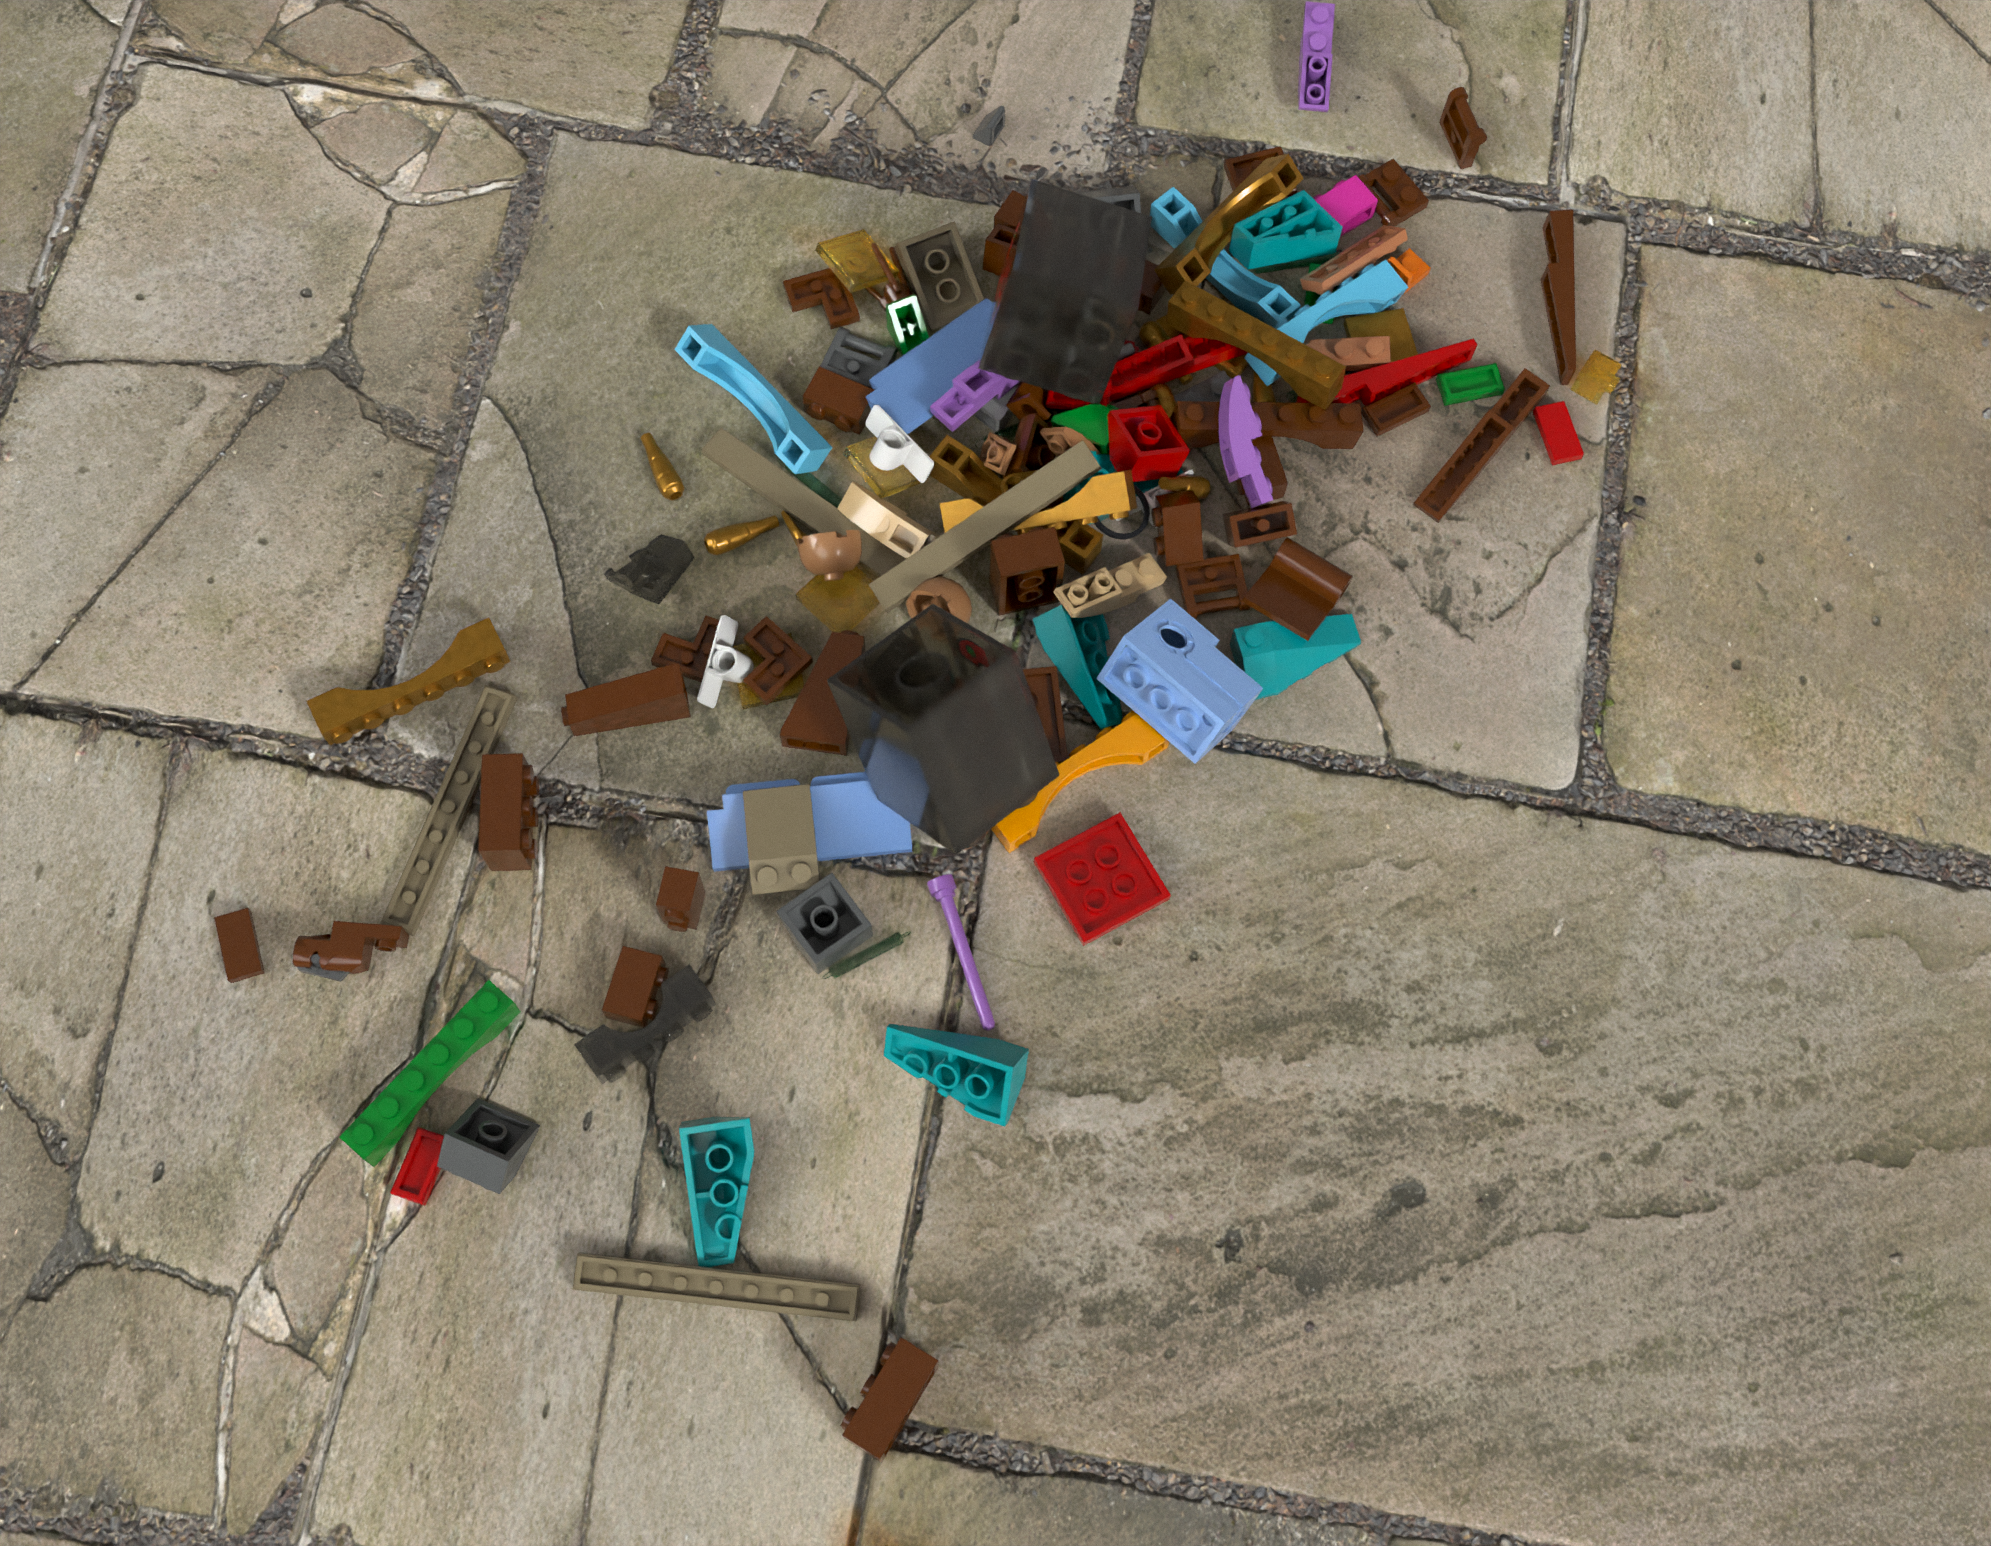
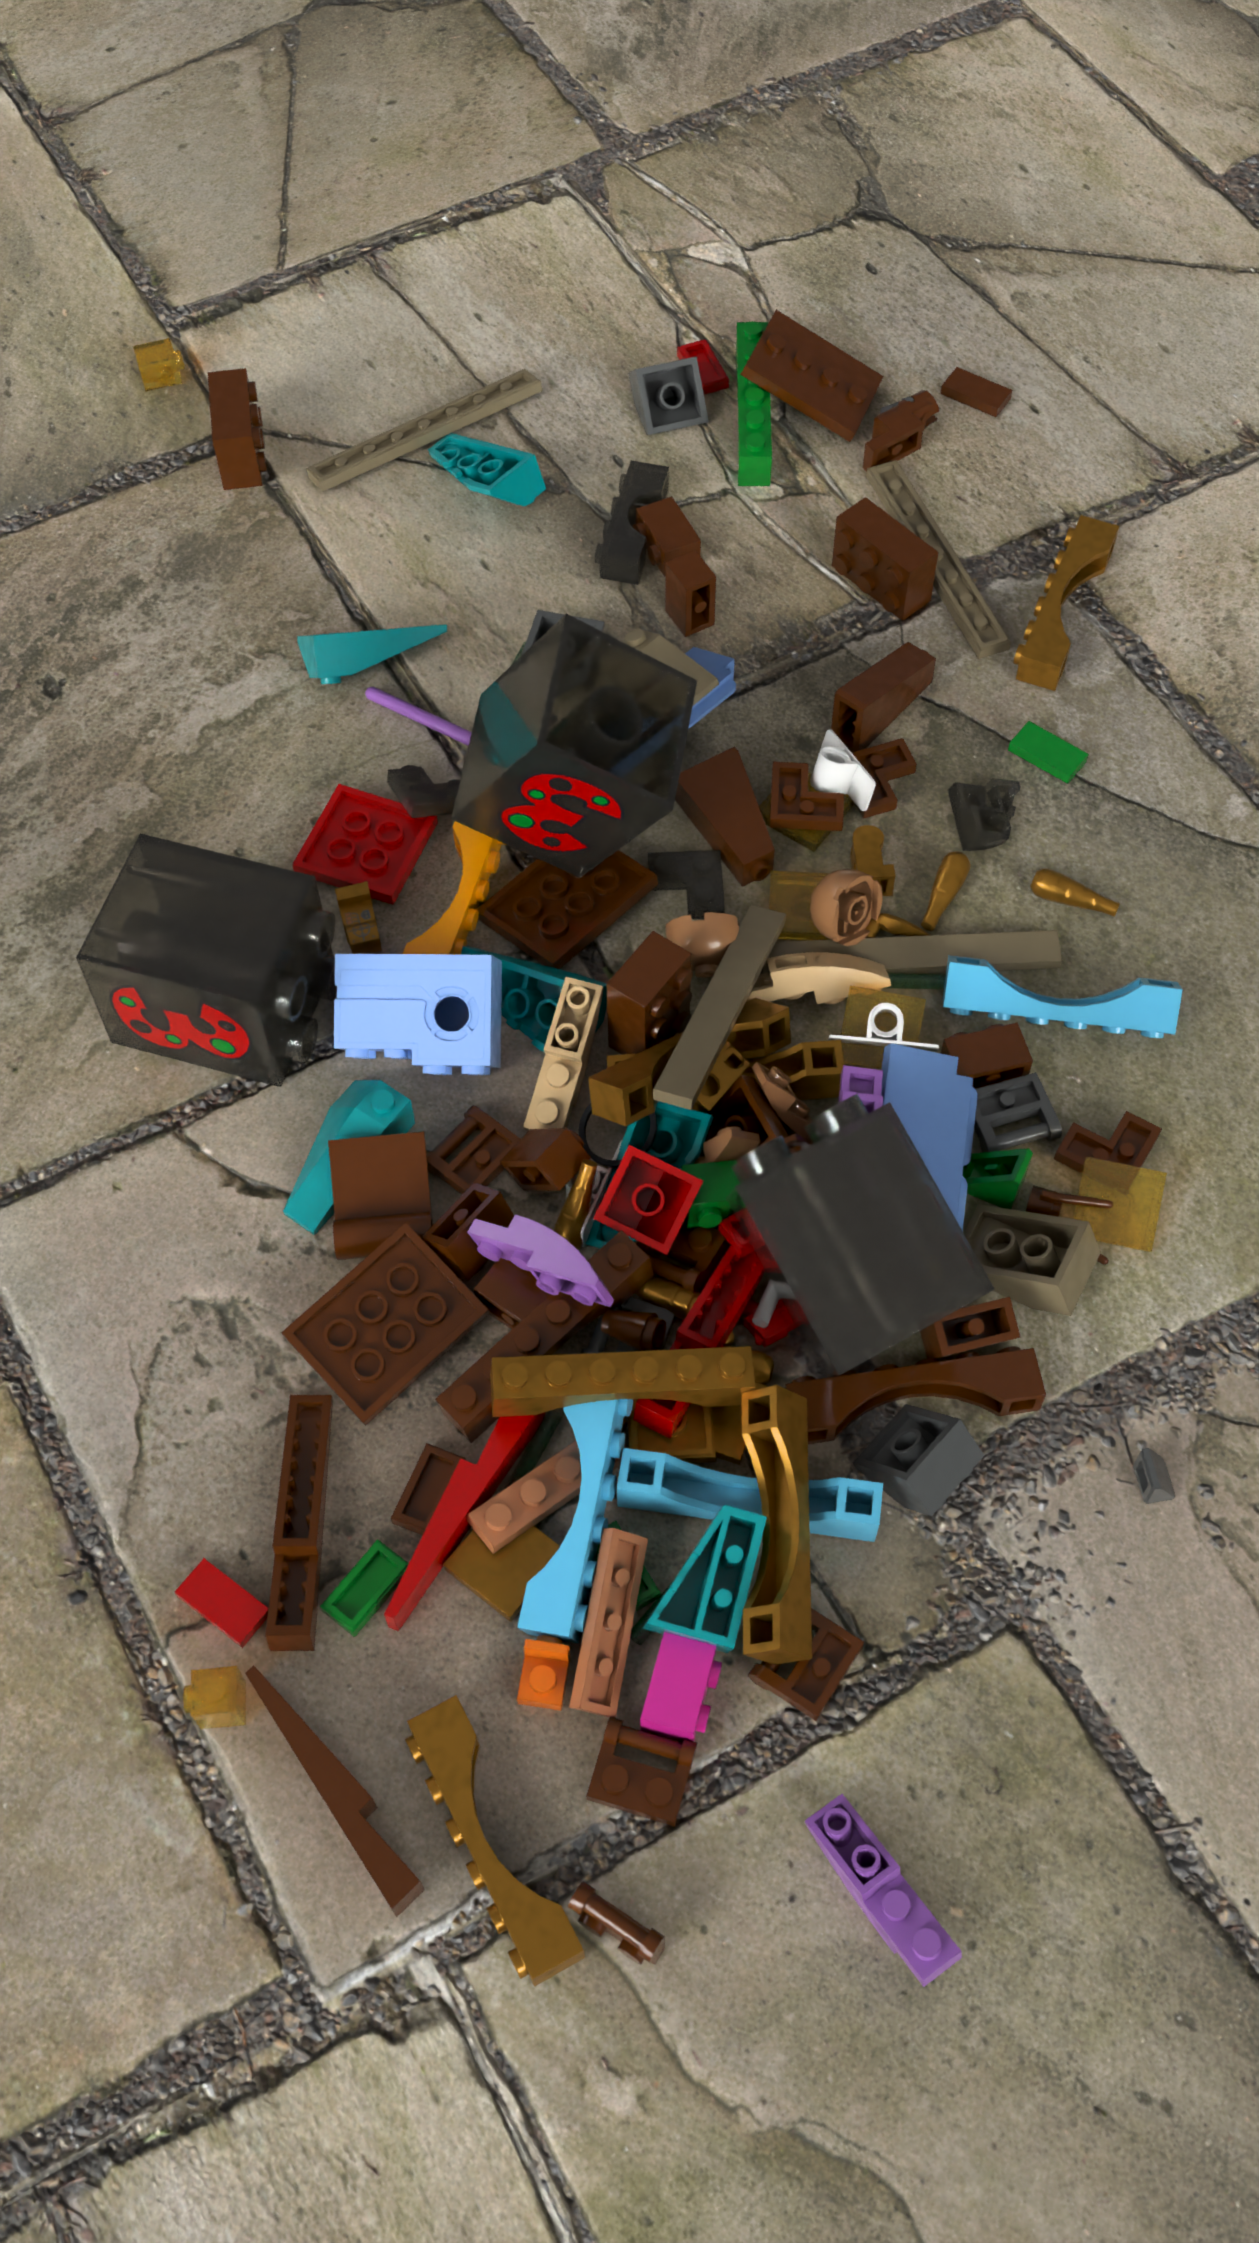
camera: 145 degrees right, 10 degrees down
(363, 1049) = (812, 375): none -> reddish brown plate
(558, 581) = (1048, 752): none -> green tile
(772, 589) = (867, 857): none -> pearl gold leg
(1032, 881) = (420, 794): none -> clear smoke plate
(1156, 814) = (358, 918): none -> pearl gold leg
(1208, 385) = (637, 1329): none -> reddish brown cone
(1301, 806) = (211, 960): none -> clear smoke brick
(1354, 510) = (385, 1323): none -> reddish brown plate
(1500, 166) = (536, 1925): none -> pearl gold arch

